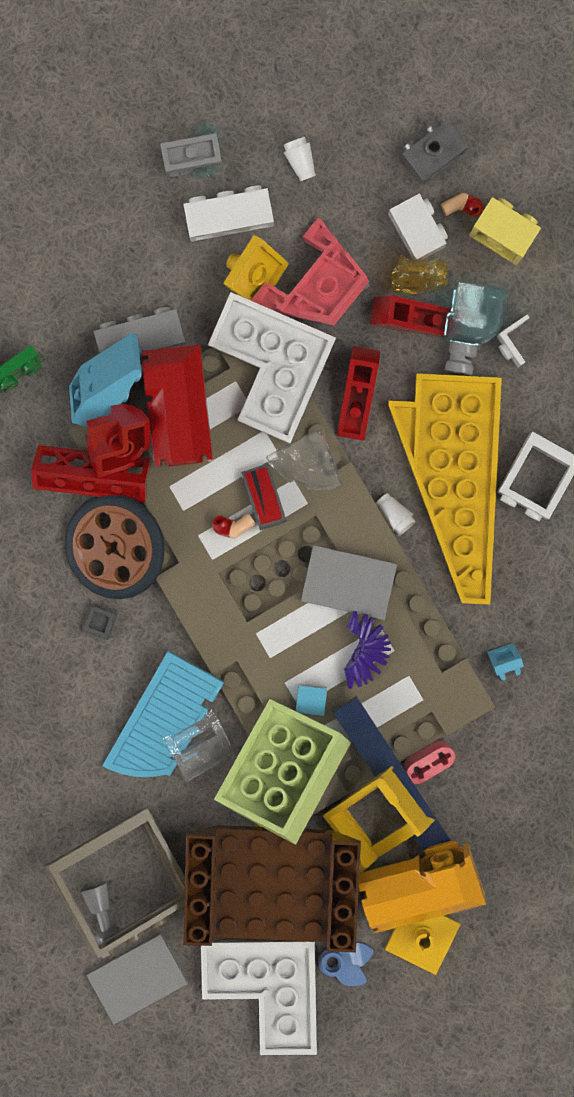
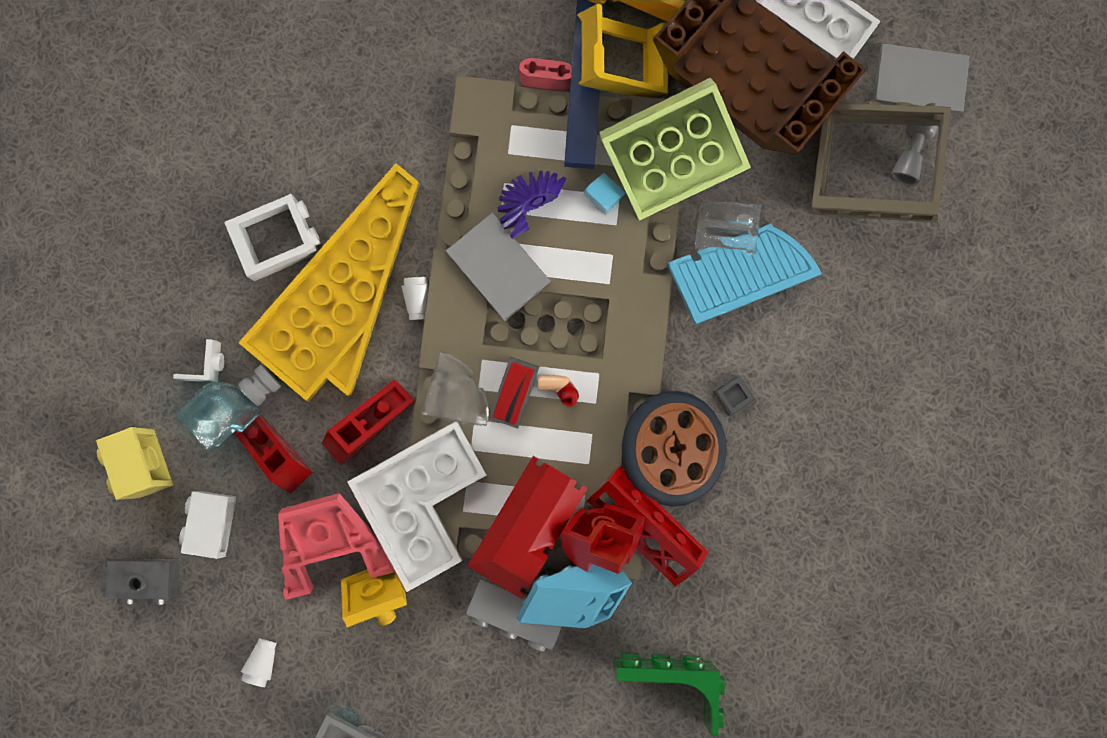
camera: 135 degrees left, 5 degrees down
(228, 213) = (357, 662): white brick -> none
(419, 276) = (239, 484): clear yellow animal -> none
(464, 203) = (154, 516): arm -> none
(505, 660) = (418, 109): medium azure tile -> none

